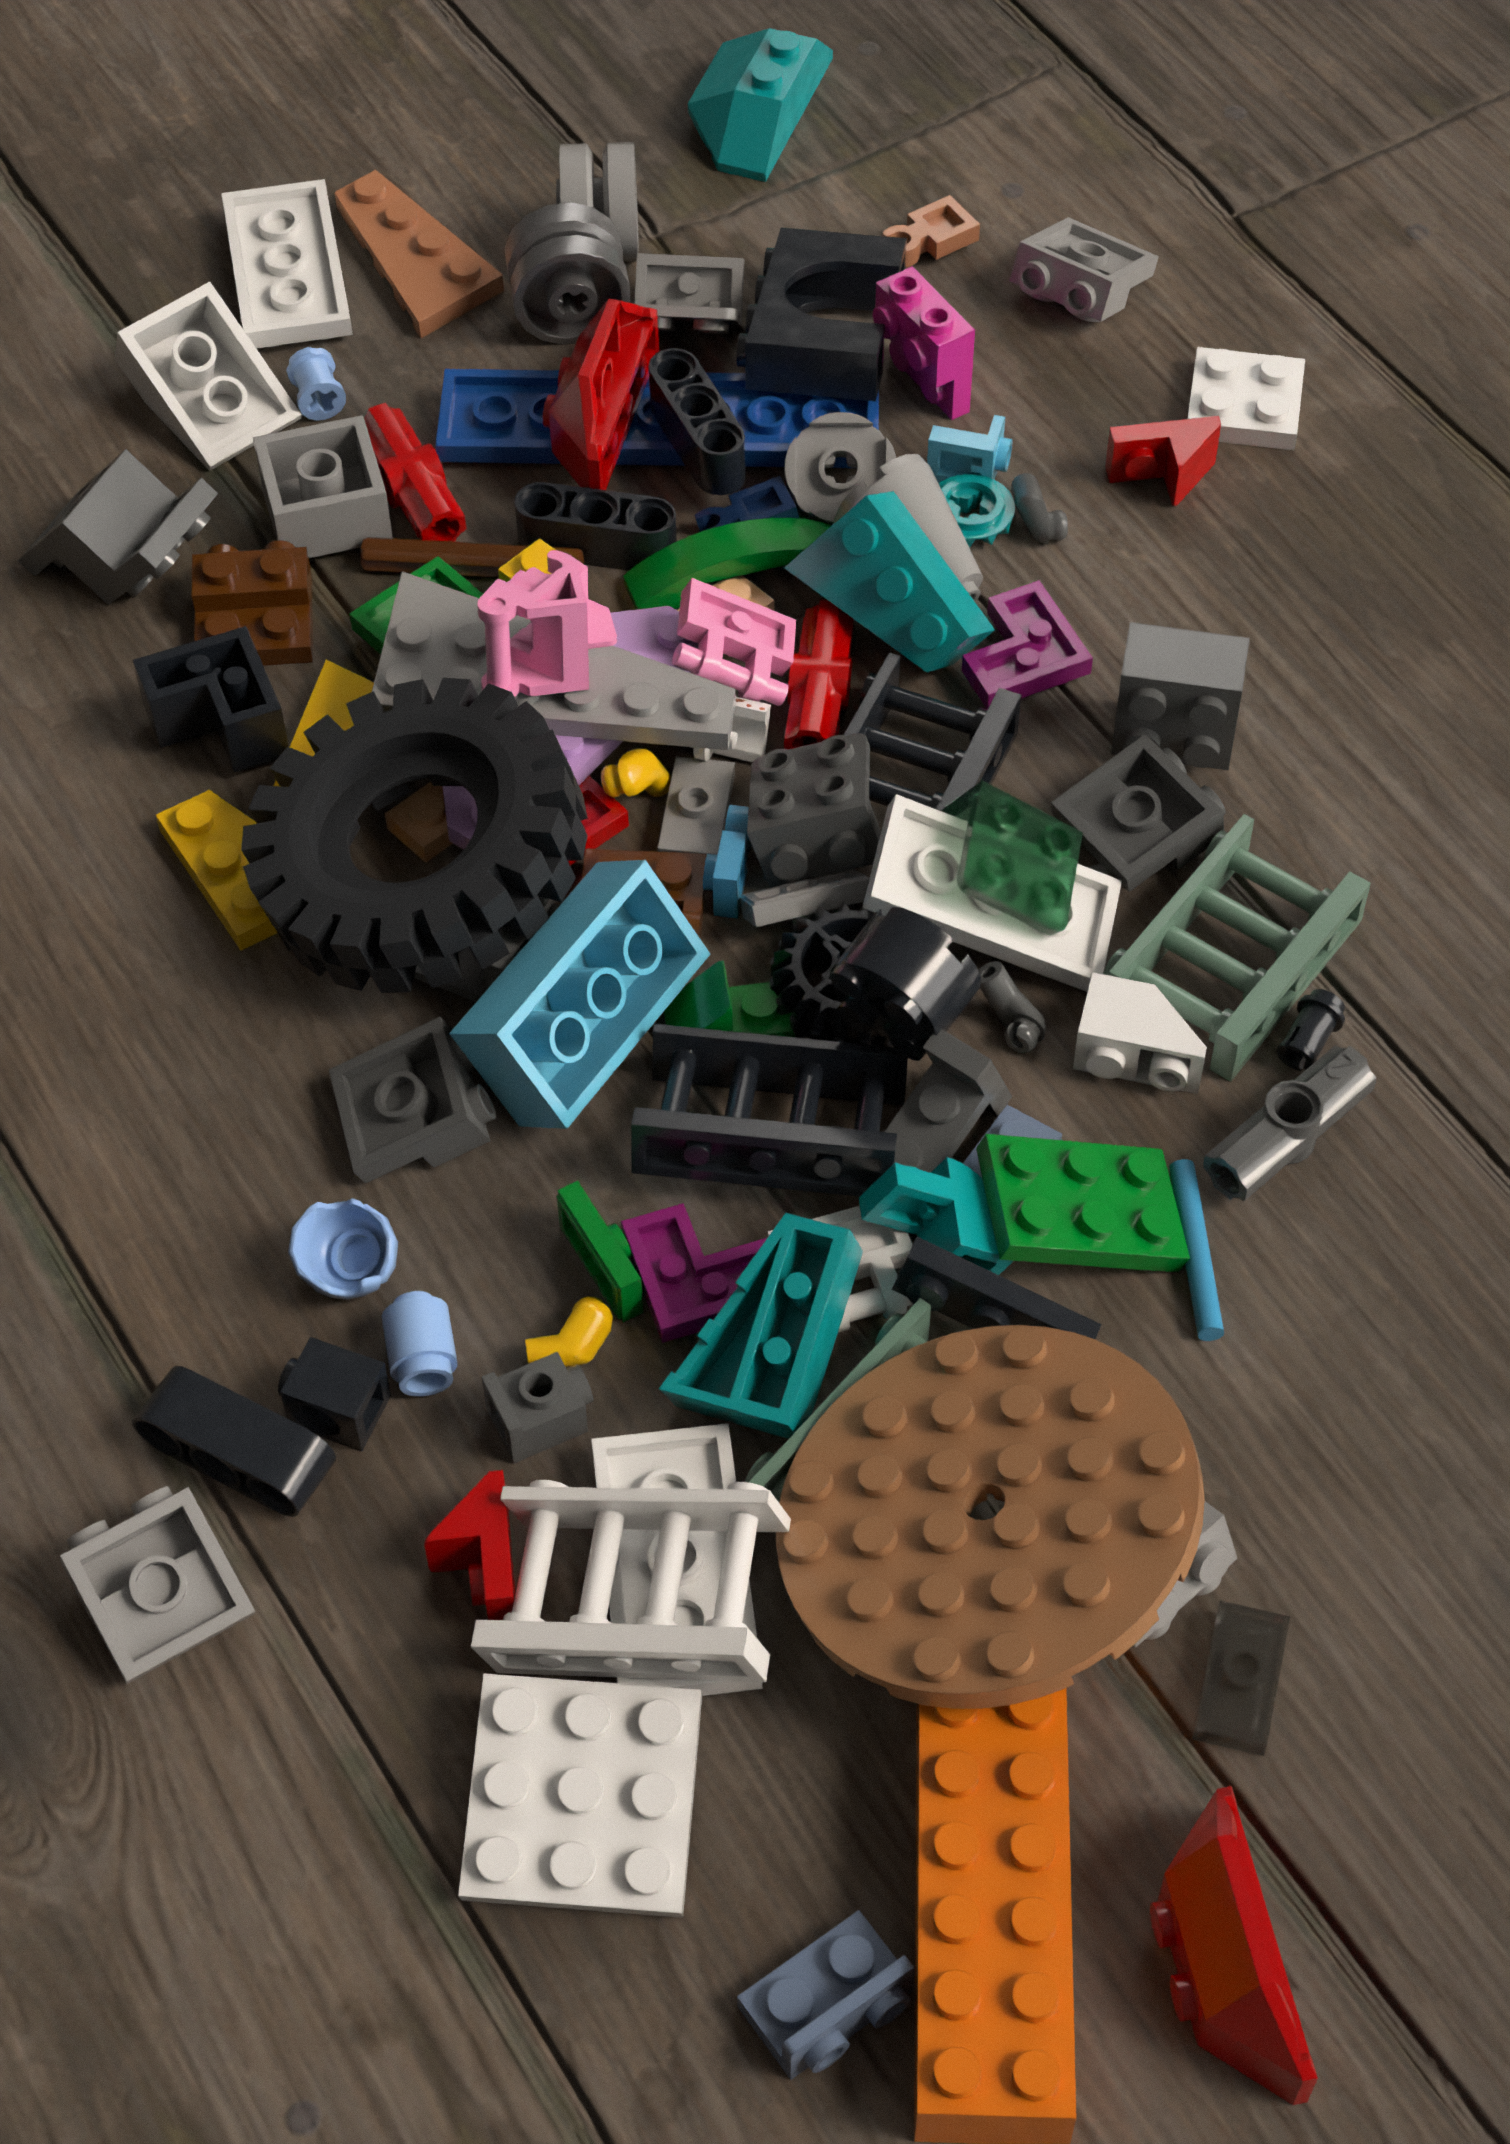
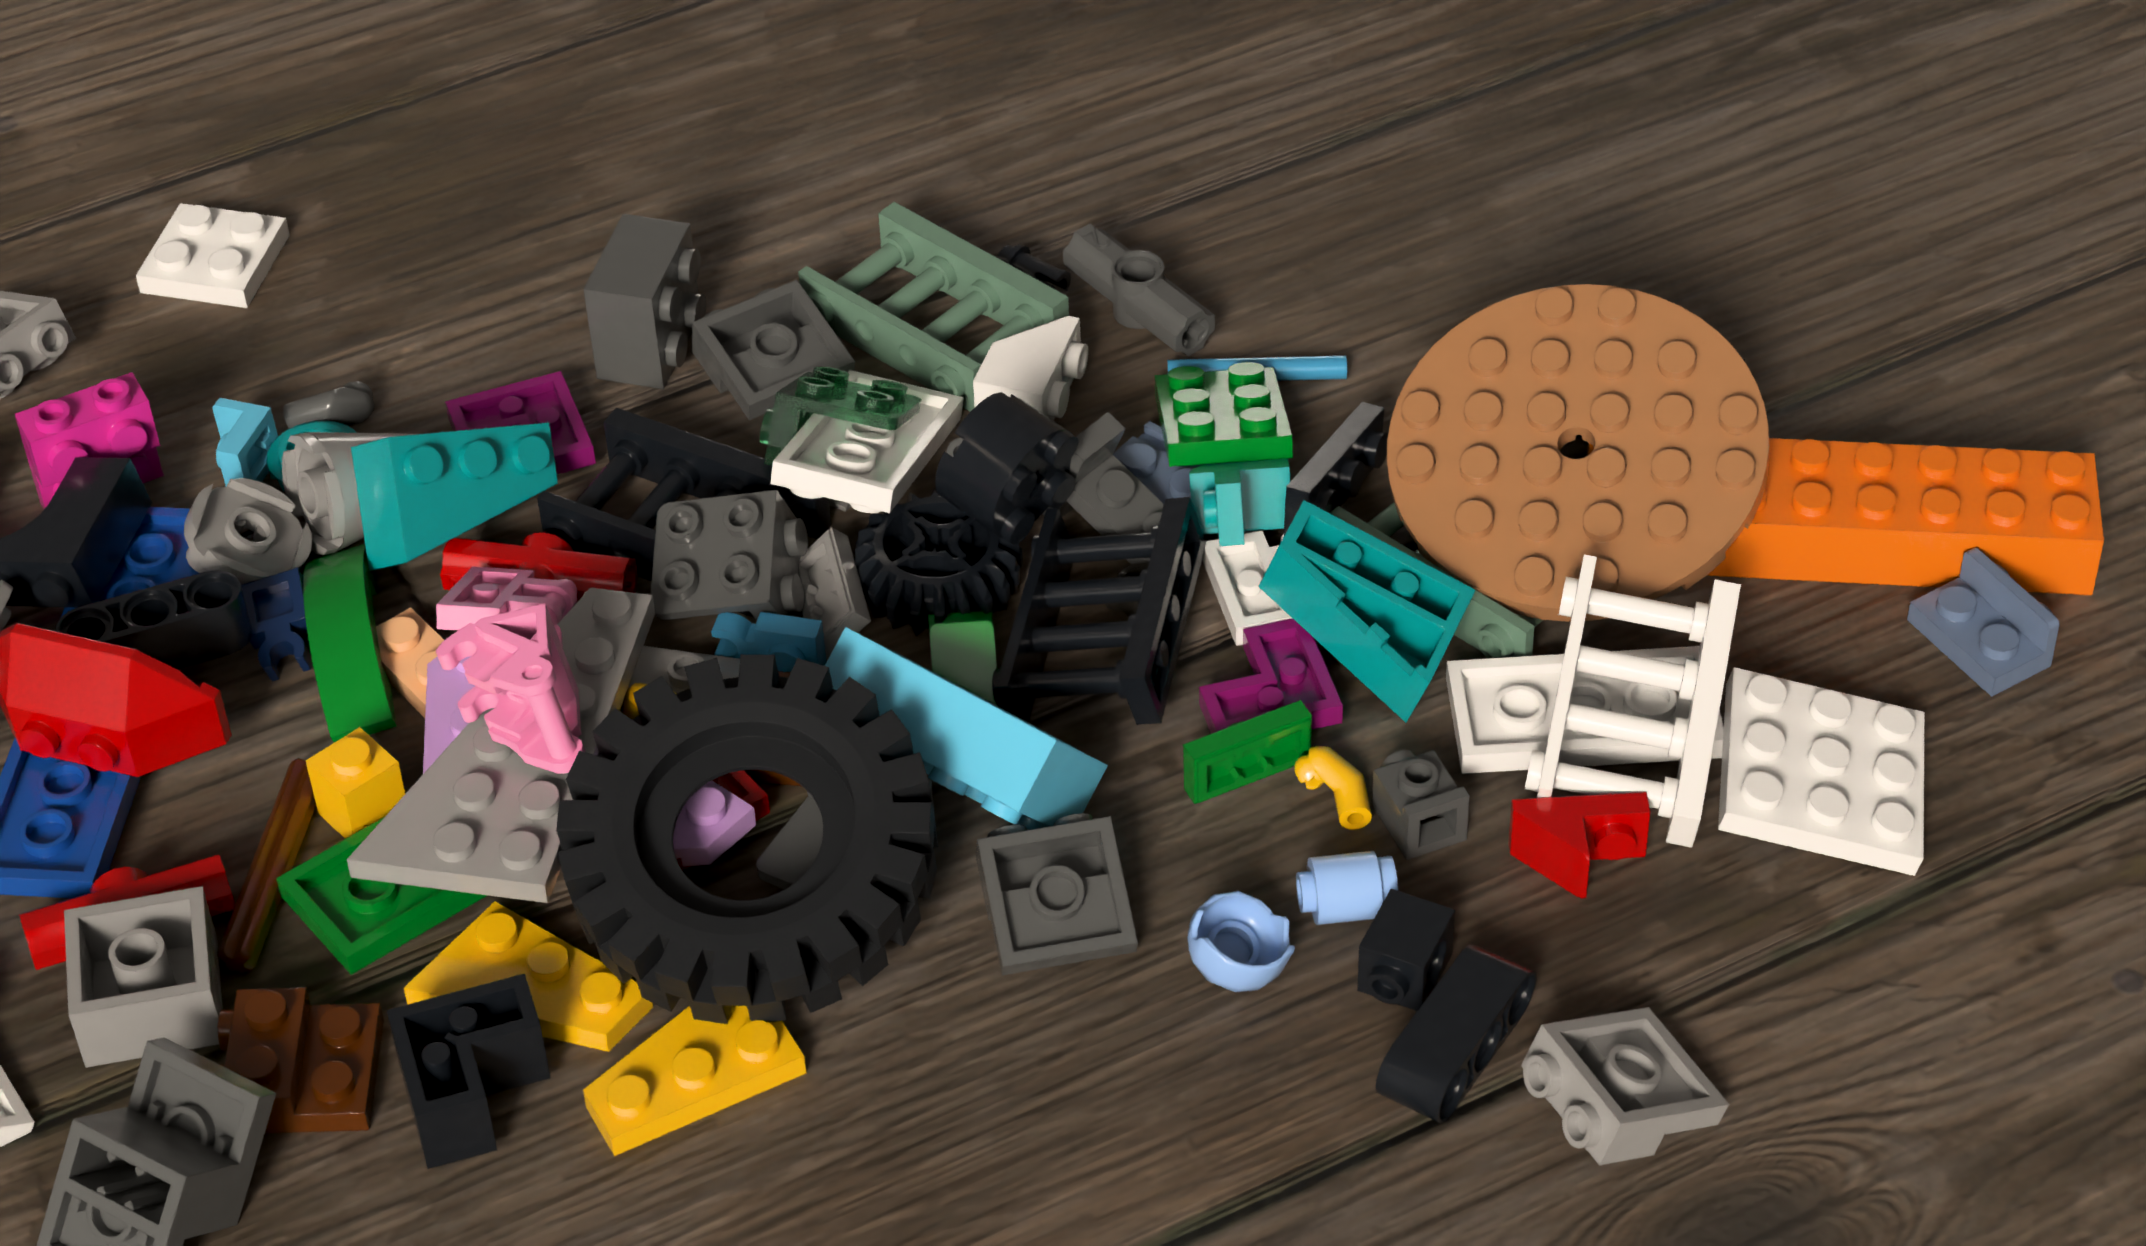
camera: 85 degrees left, 10 degrees down
(607, 525) = (265, 735): black beam -> none
(1168, 449) = (293, 299): red slope -> none
(1229, 1956) = (1920, 377): red wedge -> none

